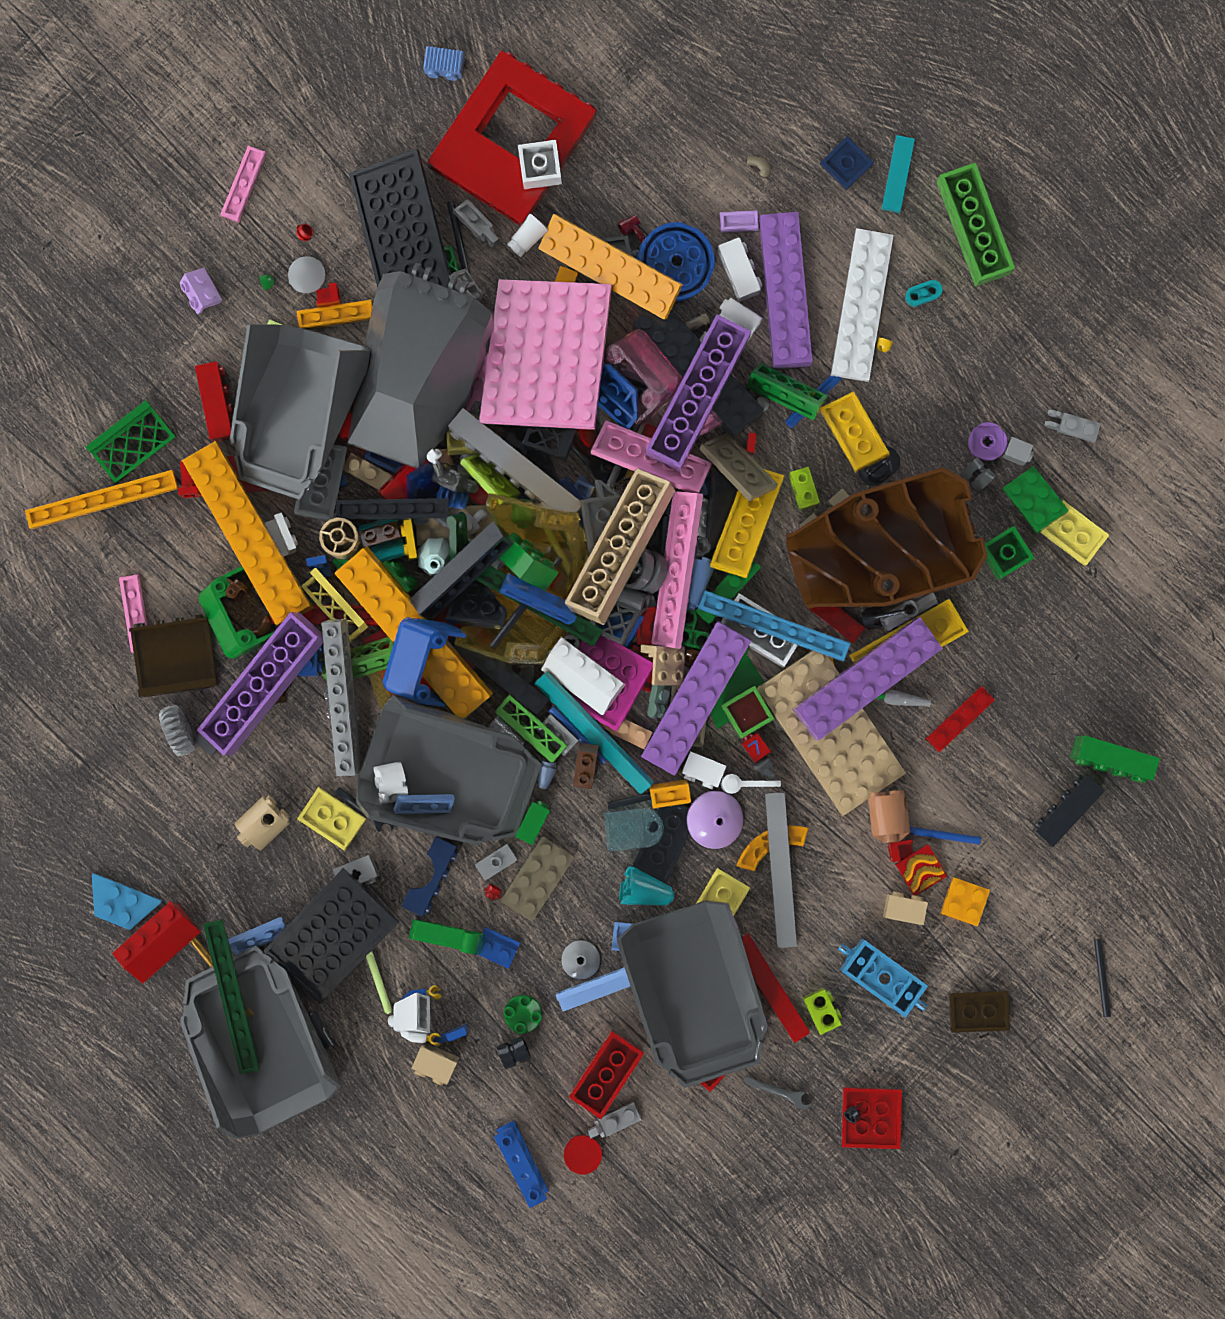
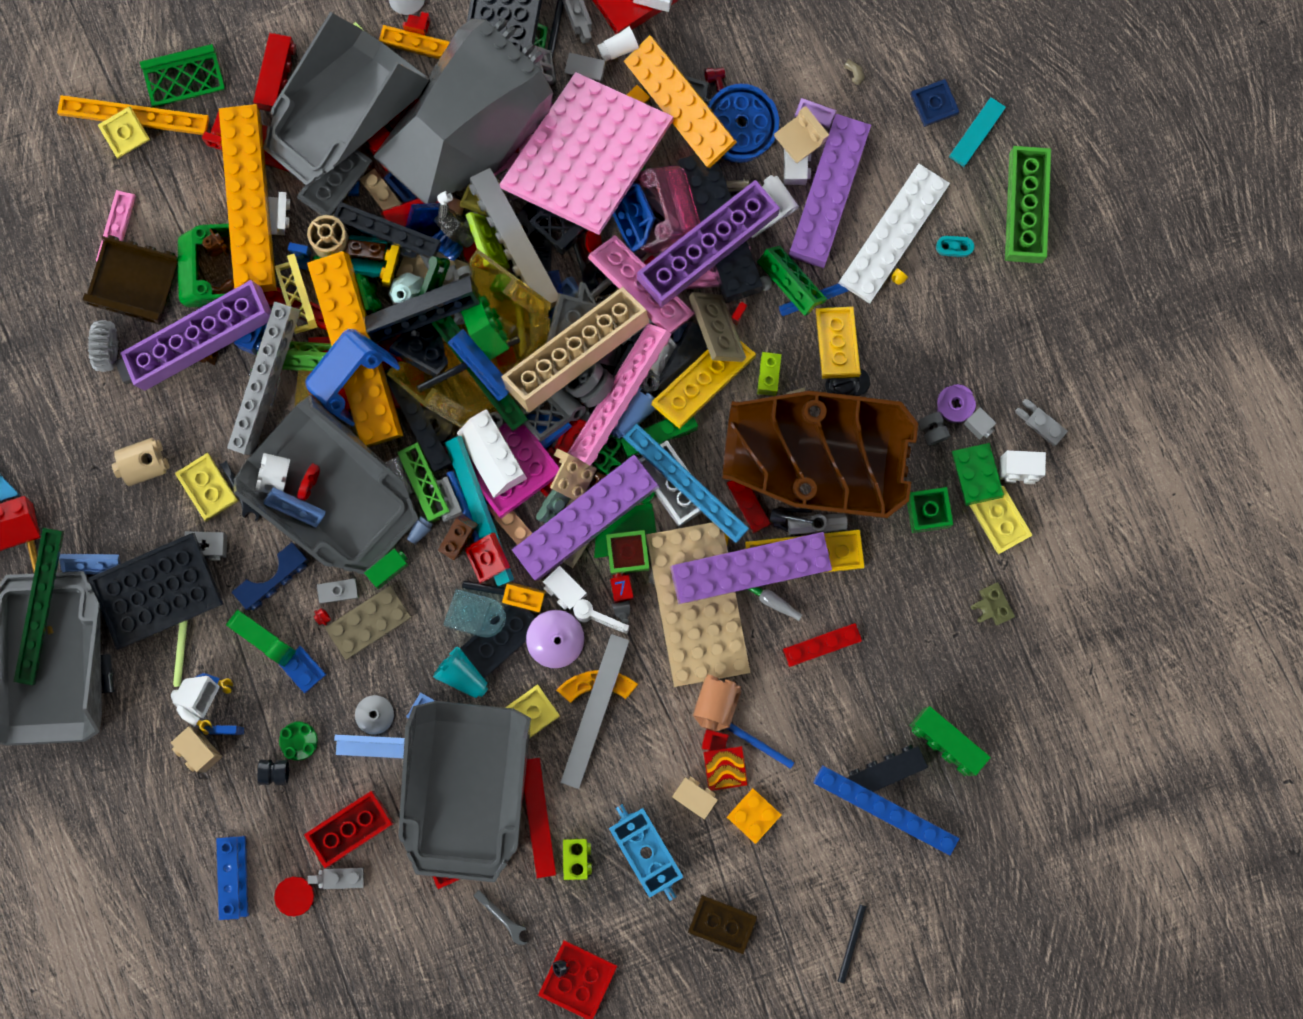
camera: 15 degrees right, 5 degrees down
(101, 520) = (124, 132): none -> light yellow tile
(427, 771) = (308, 482): none -> red tile
(505, 270) = (586, 66): none -> light grey hinge
(620, 772) = (487, 557): none -> red tile
(738, 250) = (802, 135): none -> tan bracket
(1074, 475) = (1022, 466): none -> white brick
(1083, 845) = (886, 810): none -> blue plate
(1100, 615) = (993, 605): none -> olive plate

